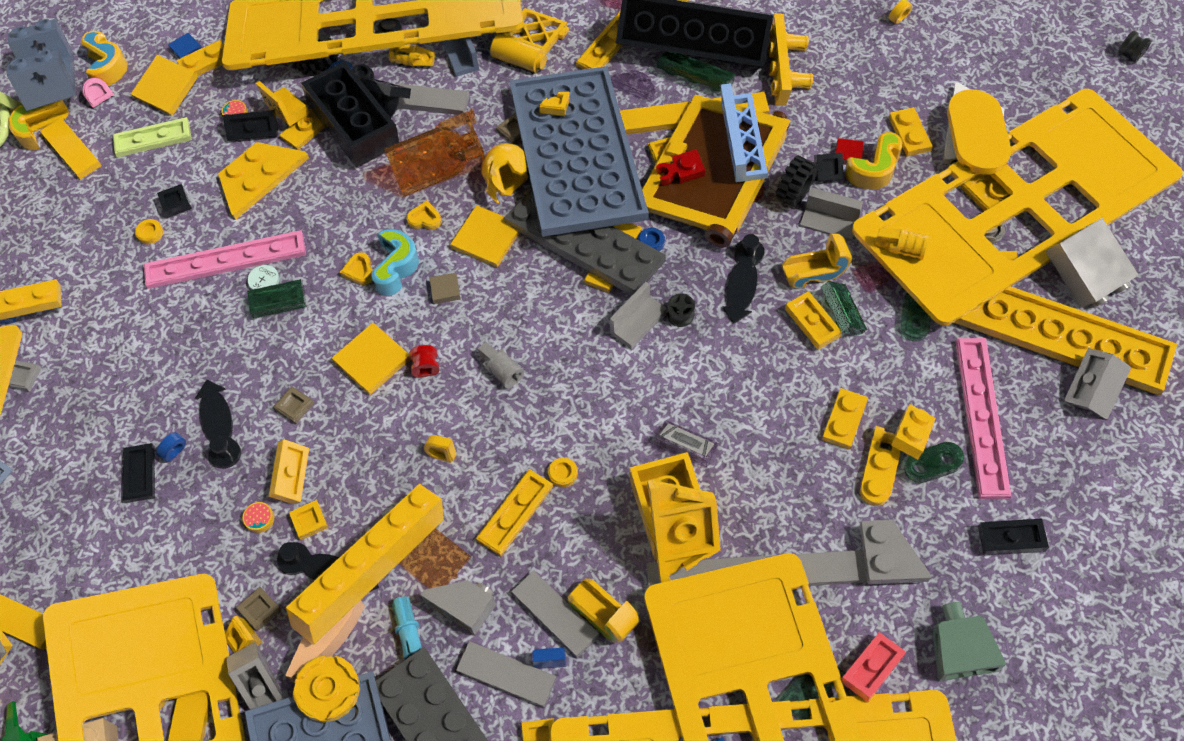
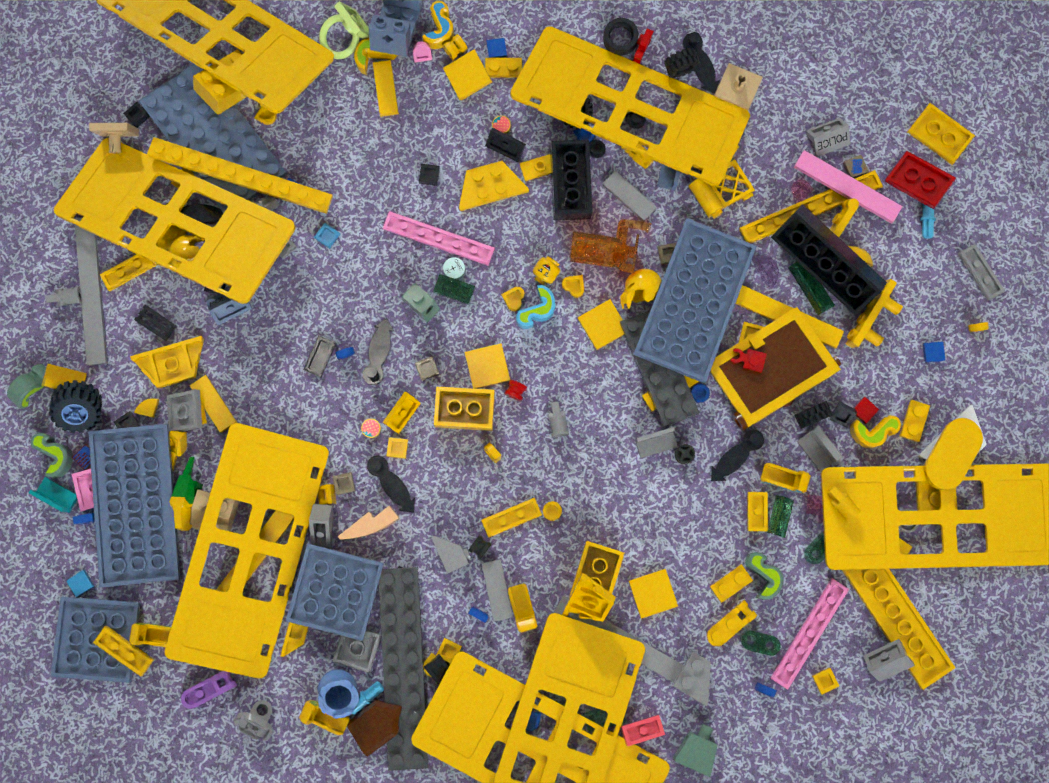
camera: 30 degrees right, 20 degrees up
(75, 333) = (327, 235): none -> dark azure tile
(133, 67) = (454, 47): none -> yellow wheel
(149, 231) = (403, 187): yellow tile -> none
(152, 137) = (440, 112): yellowish green tile -> none
(235, 331) = (420, 302): none -> sand green torso
(285, 103) = (535, 142): yellow panel -> none
(326, 688) = (354, 558): yellow tile -> none
(365, 564) = (413, 502): yellow brick -> none
(370, 416) = (464, 408): none -> yellow brick
(379, 215) = (546, 270): none -> yellow head
(386, 93) = (602, 172): black tile -> none
(406, 626) = (415, 547): medium azure axle -> none
(435, 560) = (452, 516): clear orange piece -> none
(445, 288) = (556, 345): dark tan tile -> none
(496, 571) = (480, 547): none -> pearl dark grey wheel
(506, 674) = (452, 606): light grey tile -> none
(556, 105) = (703, 259): yellow tile -> none
(681, 440) = (632, 539): slope -> none
(738, 137) = (797, 357): light blue fence -> none
(759, 490) = (653, 593): none -> yellow tile
(875, 59) = (934, 352): none -> blue tile
(879, 376) = (769, 573): none -> sand green animal
(913, 431) = (761, 619): yellow plate -> none
(985, 512) = (765, 690): none -> blue tile
(1013, 536) = (770, 712): black plate -> none
(1046, 457) = (825, 681): none -> yellow tile
(1092, 264) = (947, 588): brick -> none

